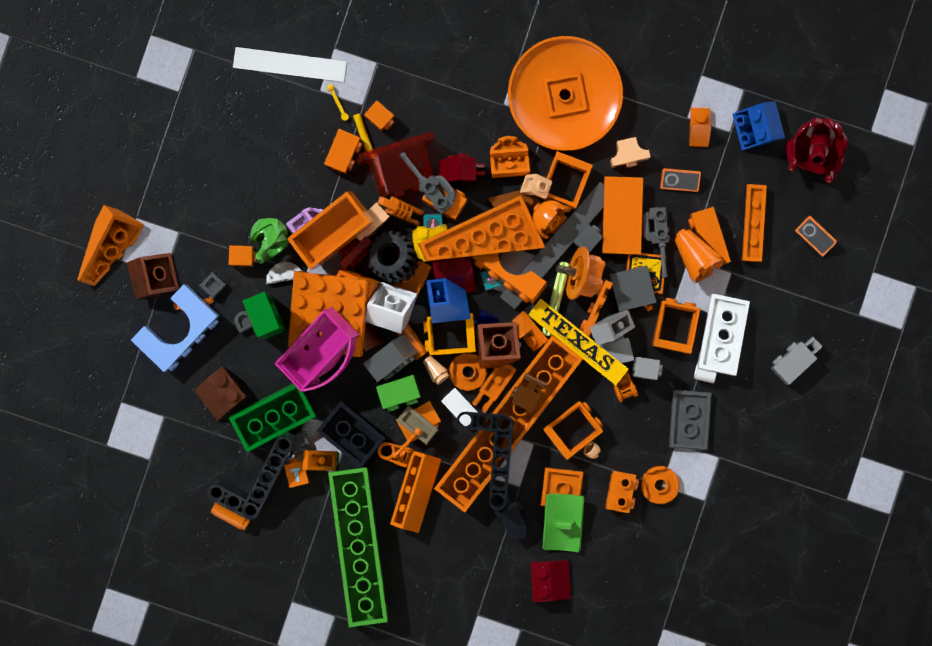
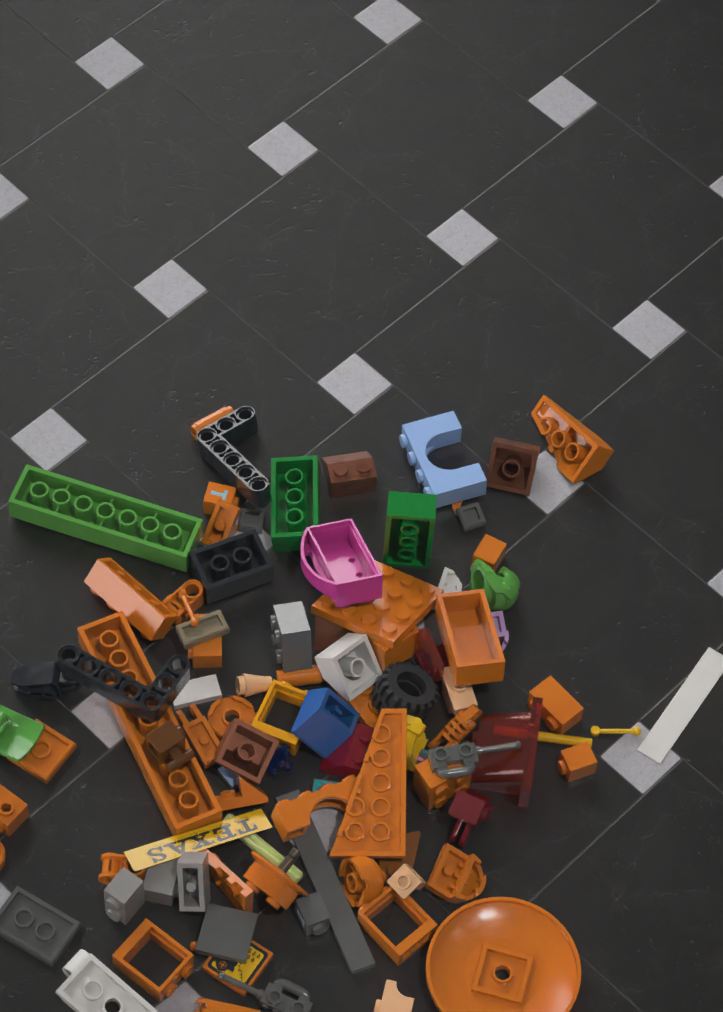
camera: 115 degrees right, 30 degrees down
(398, 392) = (248, 629): bright green brick -> none
(591, 450) = (65, 801): light nougat hinge -> none
(596, 424) = (99, 768): orange window -> none
(622, 215) = (320, 965): orange tile -> none

